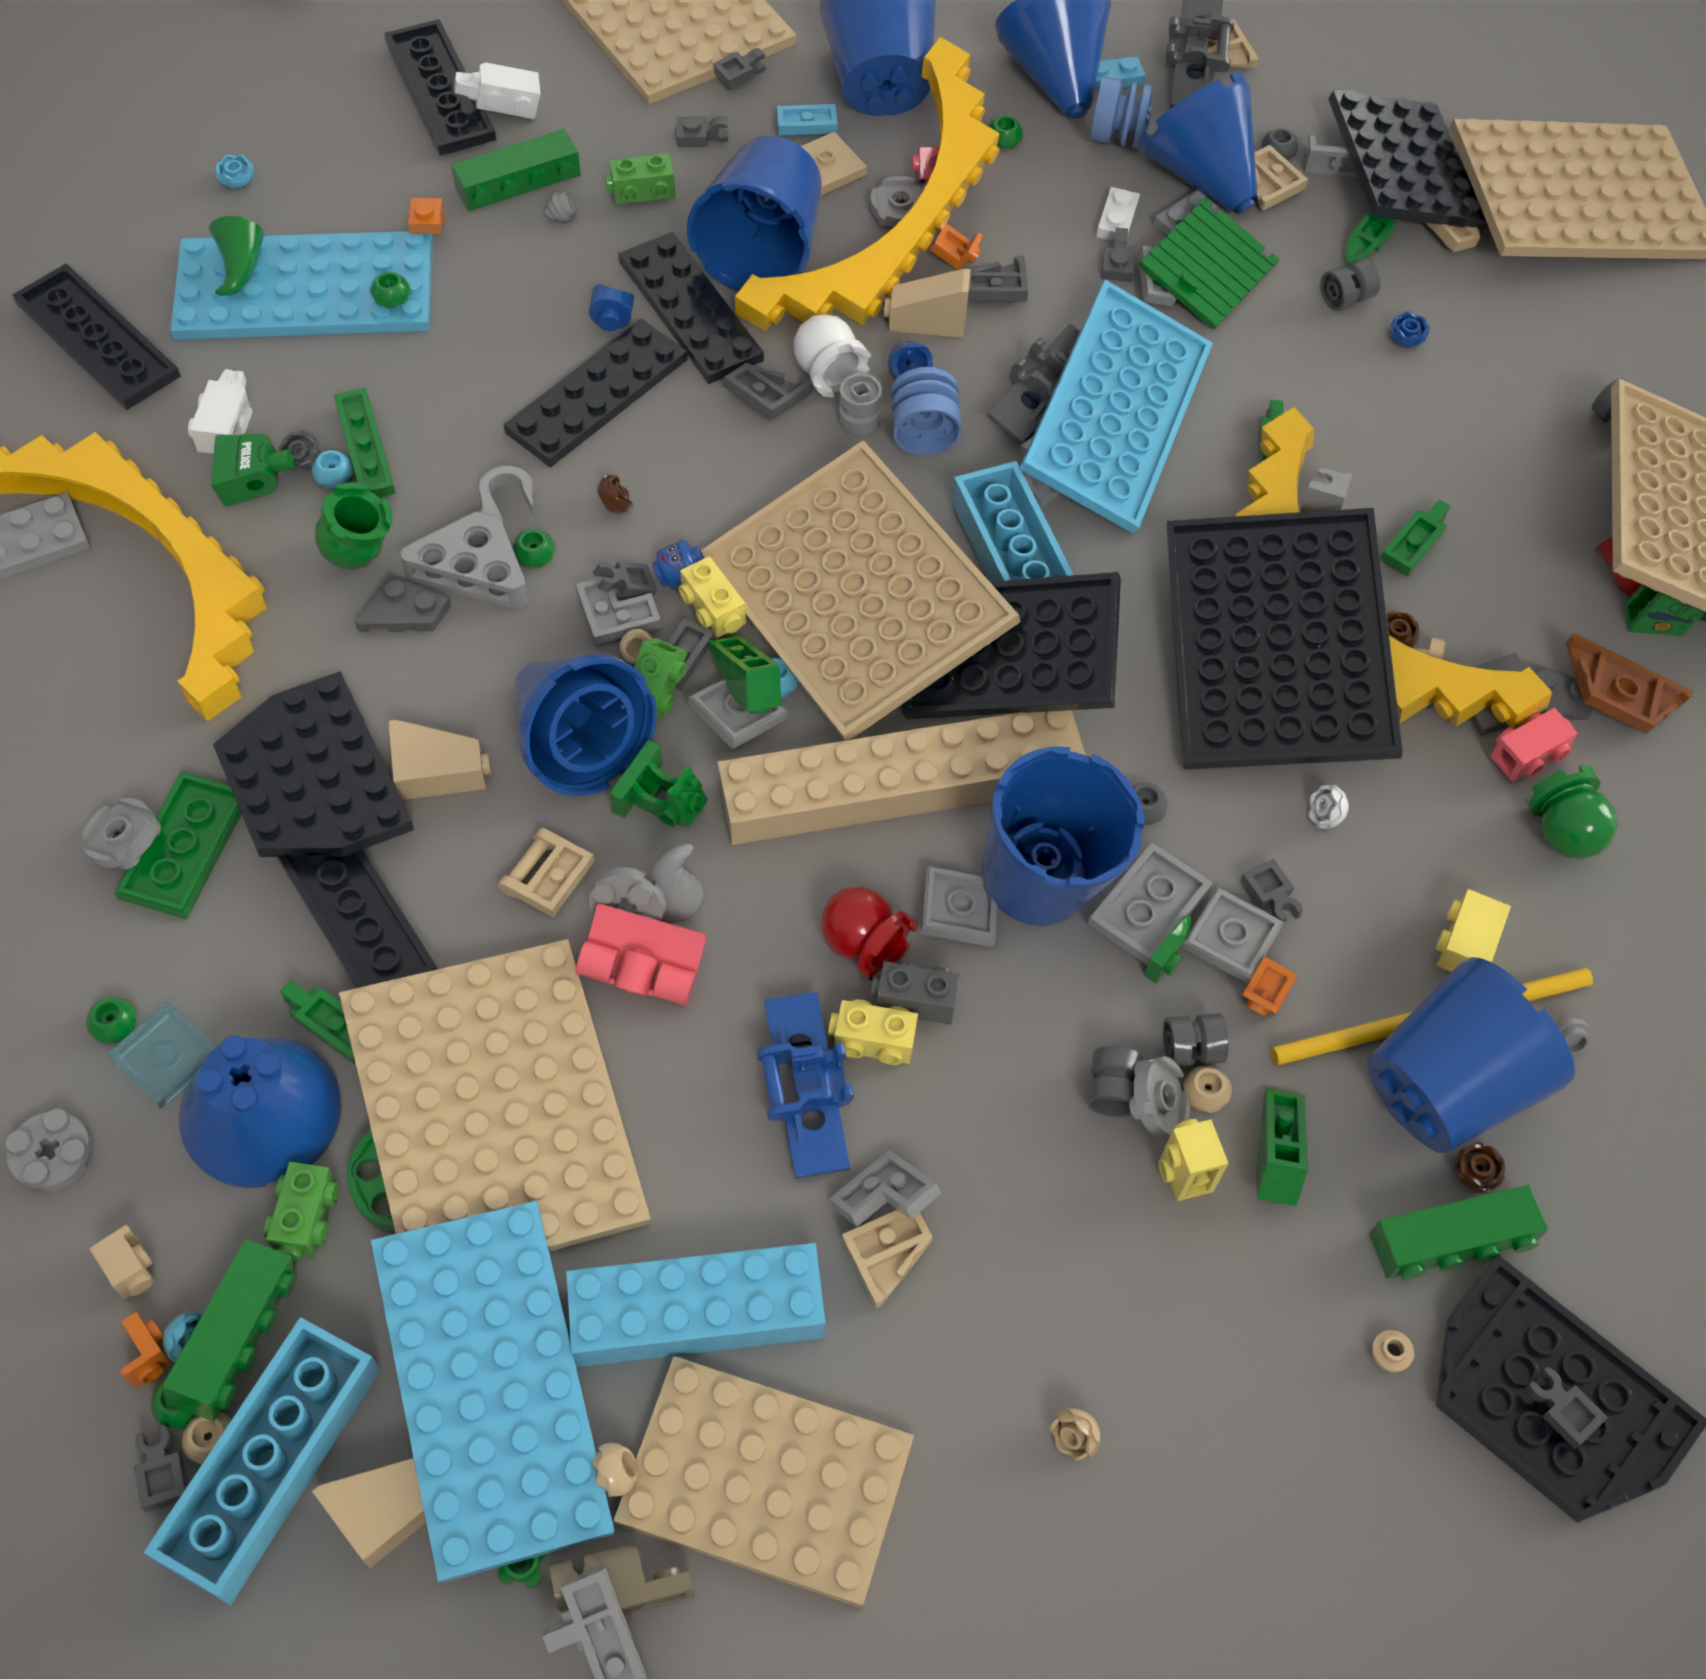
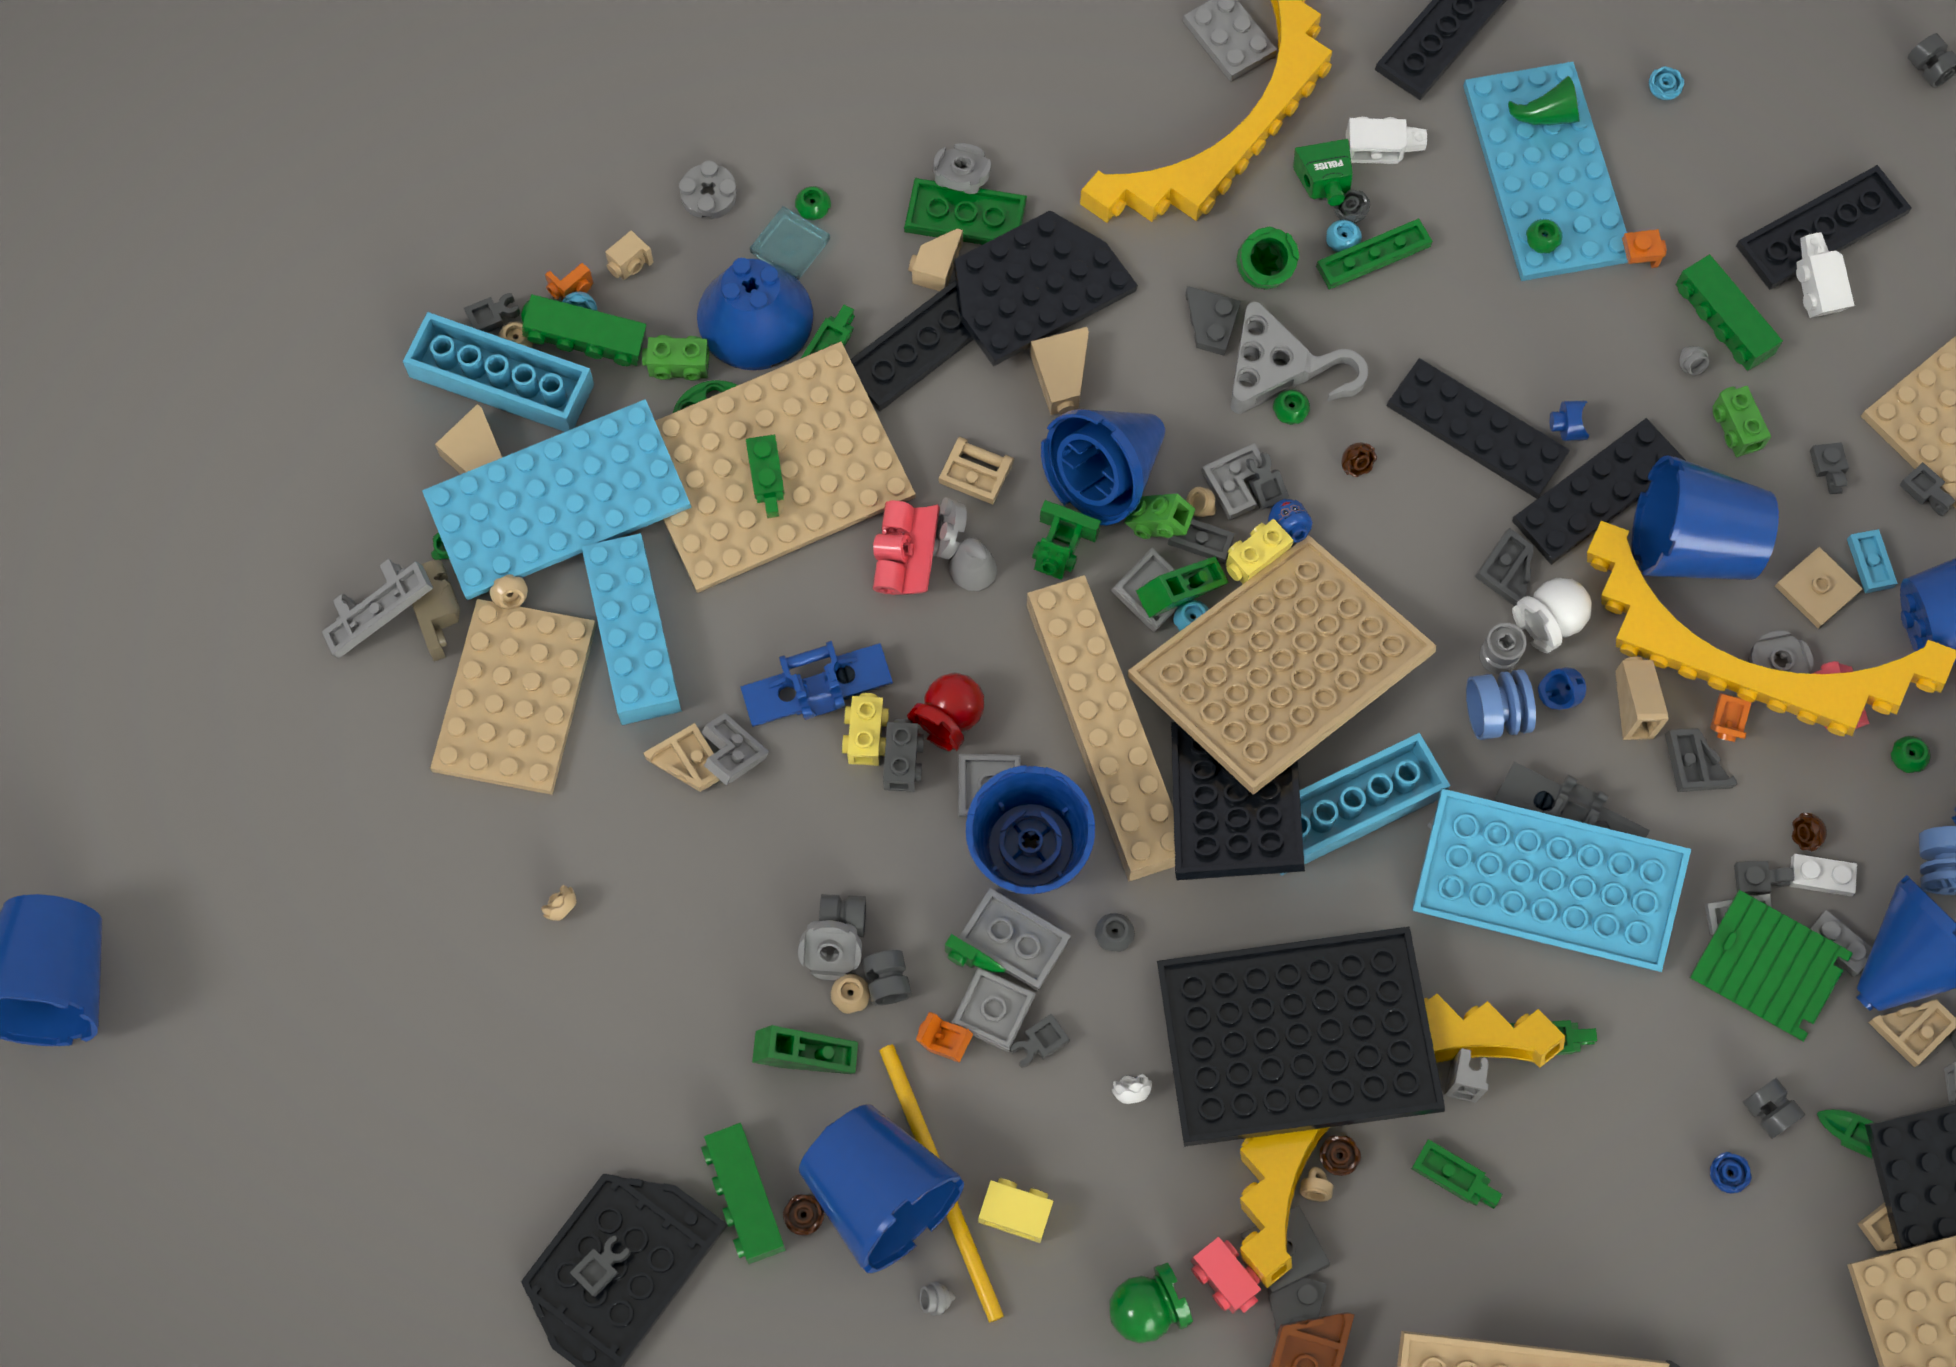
camera: 85 degrees right, 10 degrees up
(248, 878) = (935, 260): none -> tan slope
(510, 1103) = (766, 472): none -> green hinge
(1079, 221) = (1809, 832): none -> reddish brown plate
(1193, 1159) = (777, 973): light yellow brick -> none
(1385, 1359) = (643, 1151): tan plate -> none

